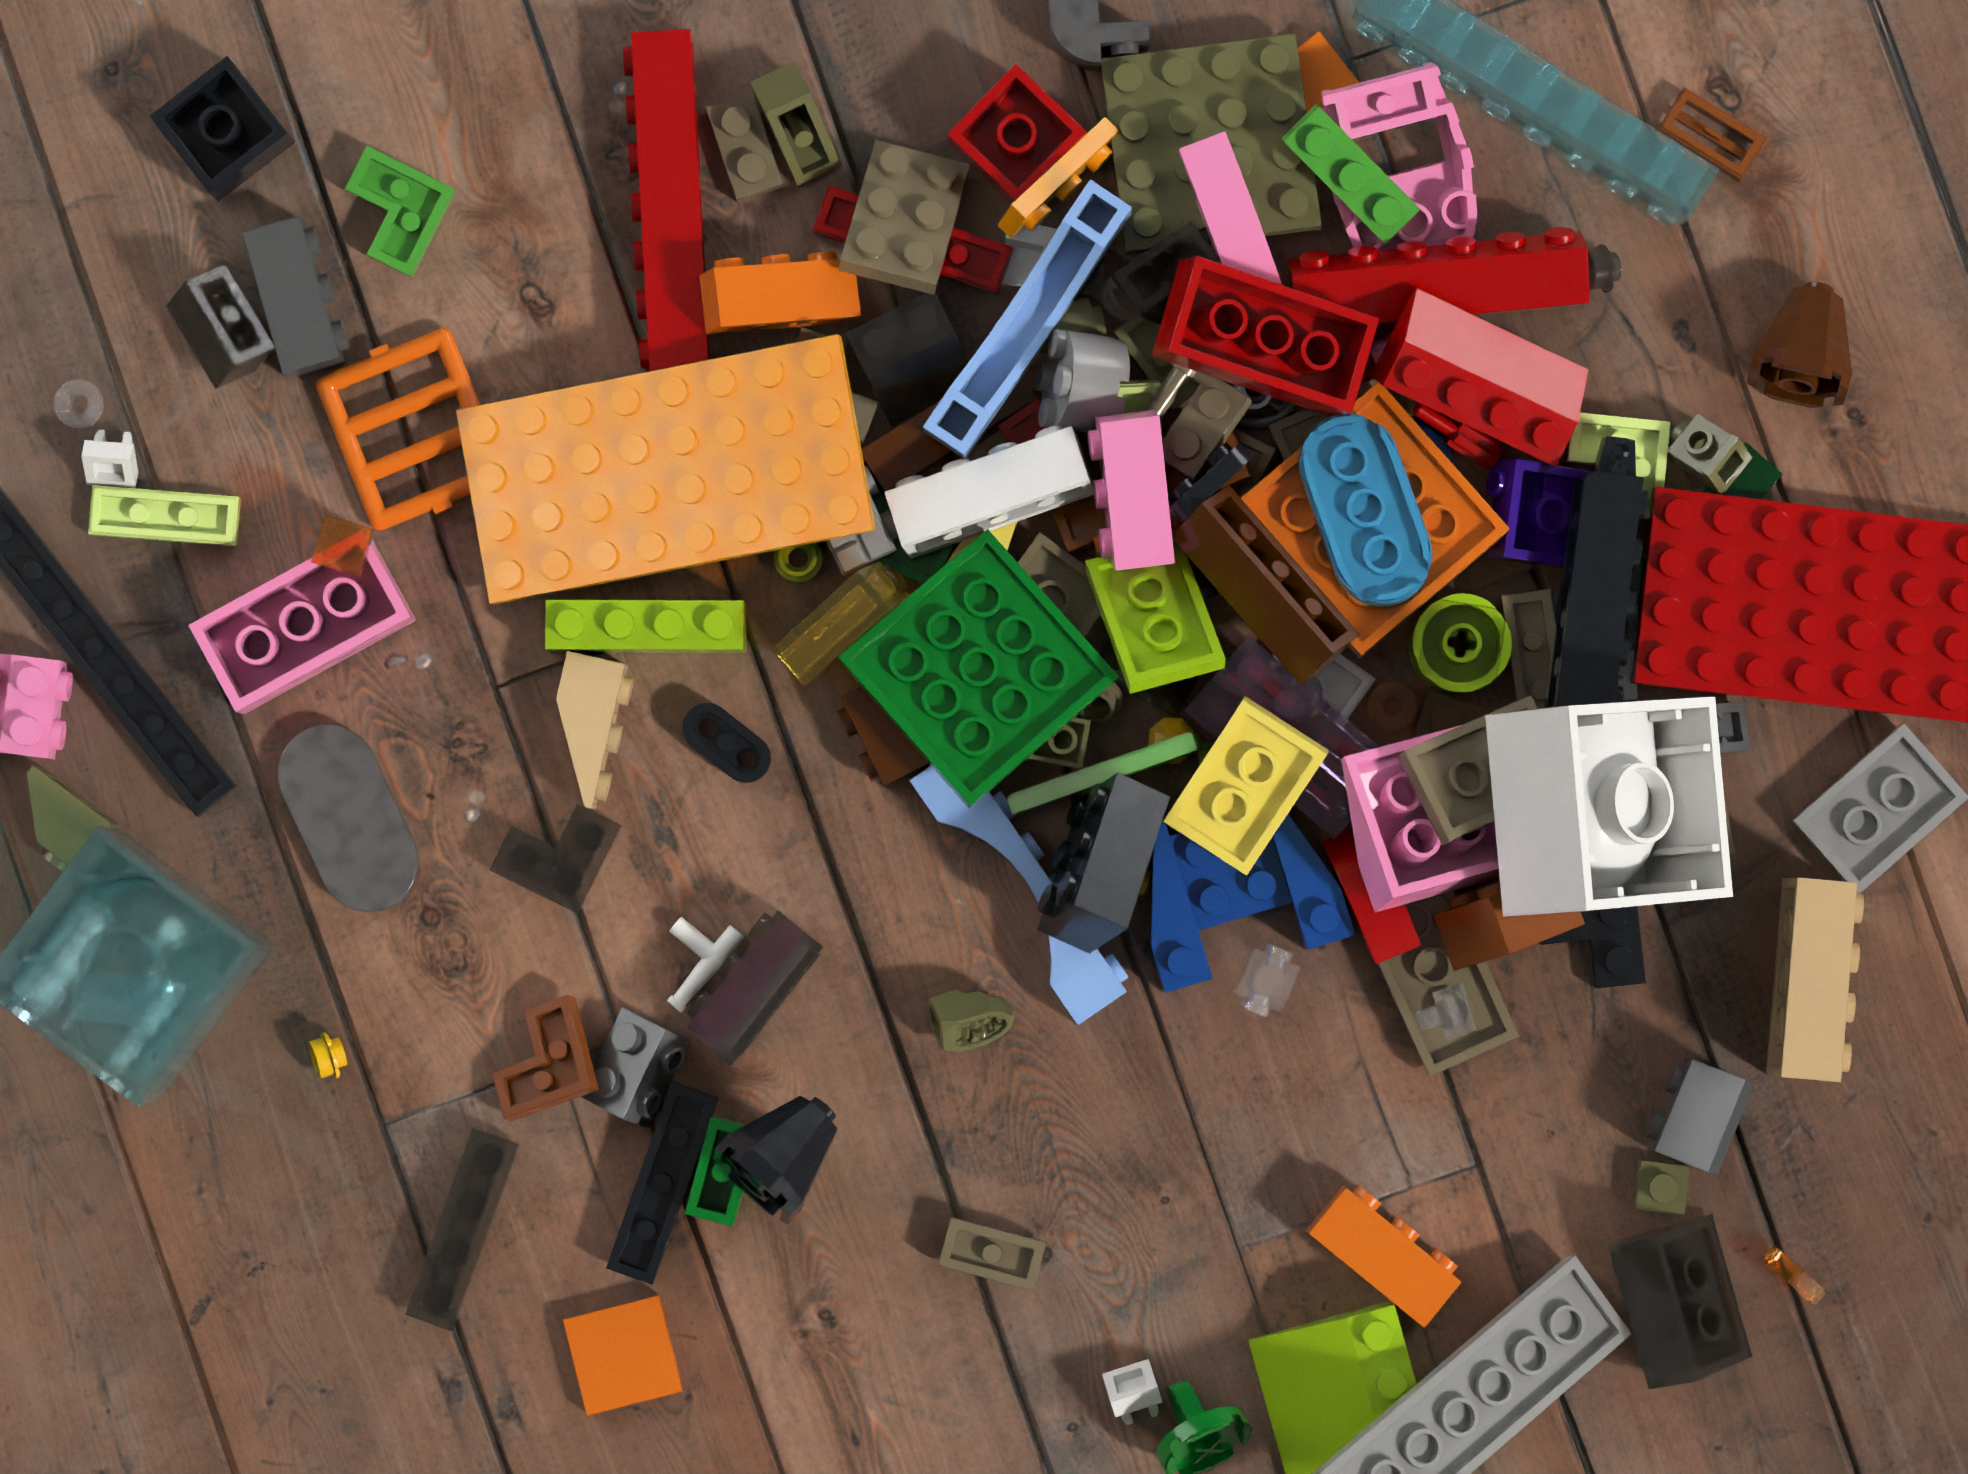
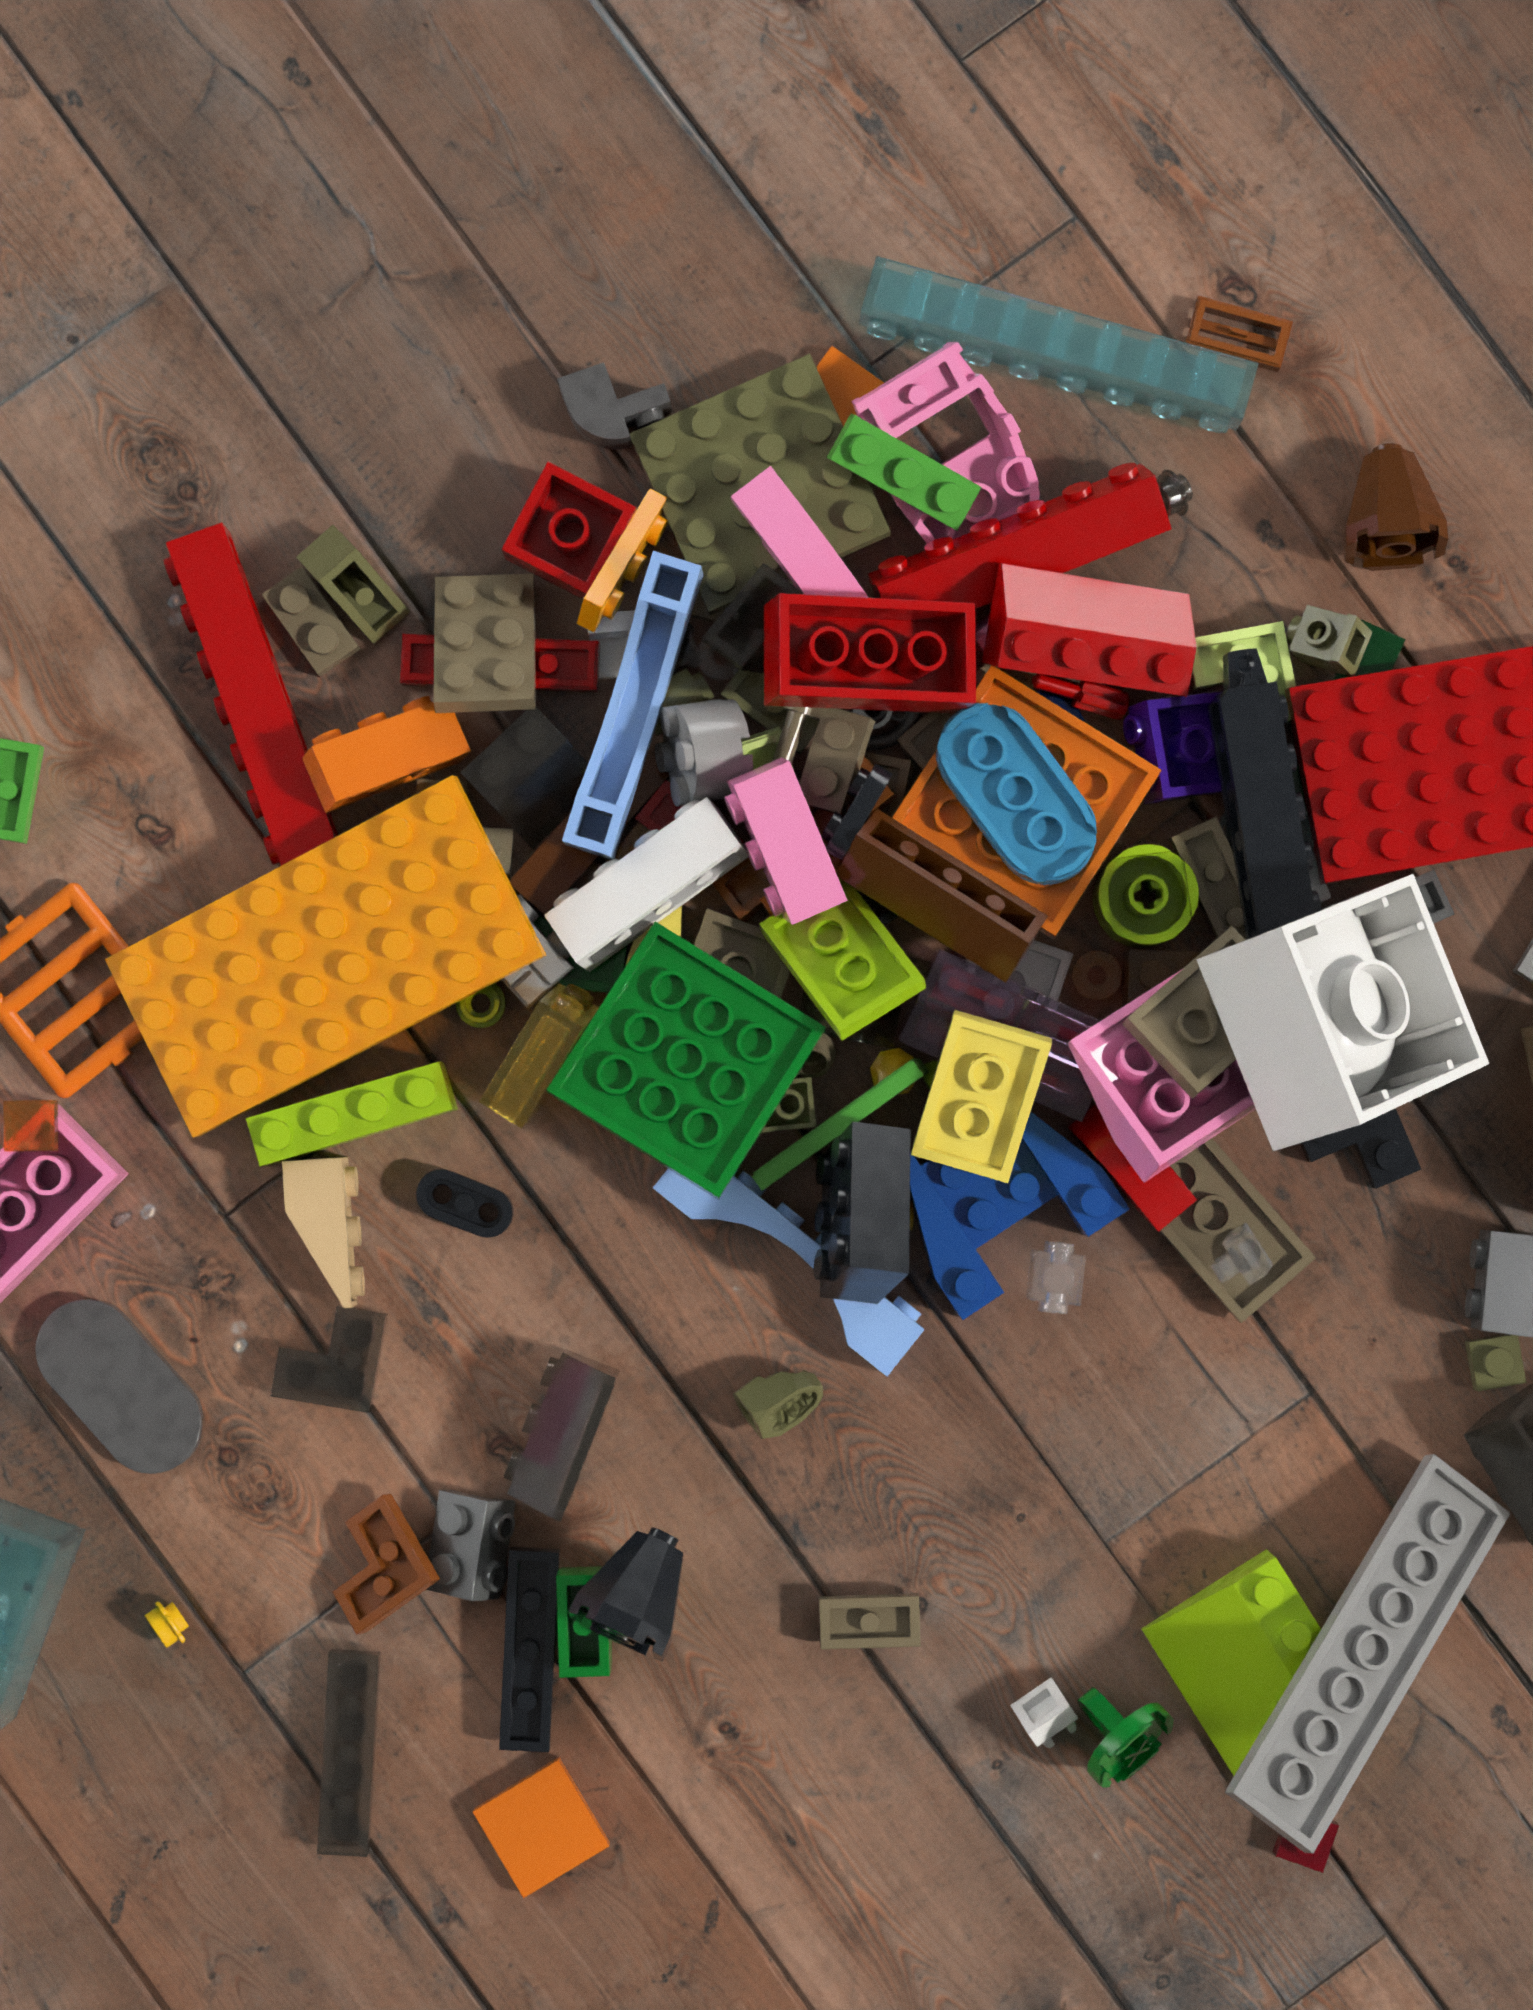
camera: 25 degrees left, 0 degrees up
(711, 956) = (511, 1412): white piece -> none
(887, 750) = (622, 1166): reddish brown brick -> none
(1385, 1254) = (1250, 1508): orange brick -> none
(1478, 931) = (1249, 1170): dark orange brick -> none

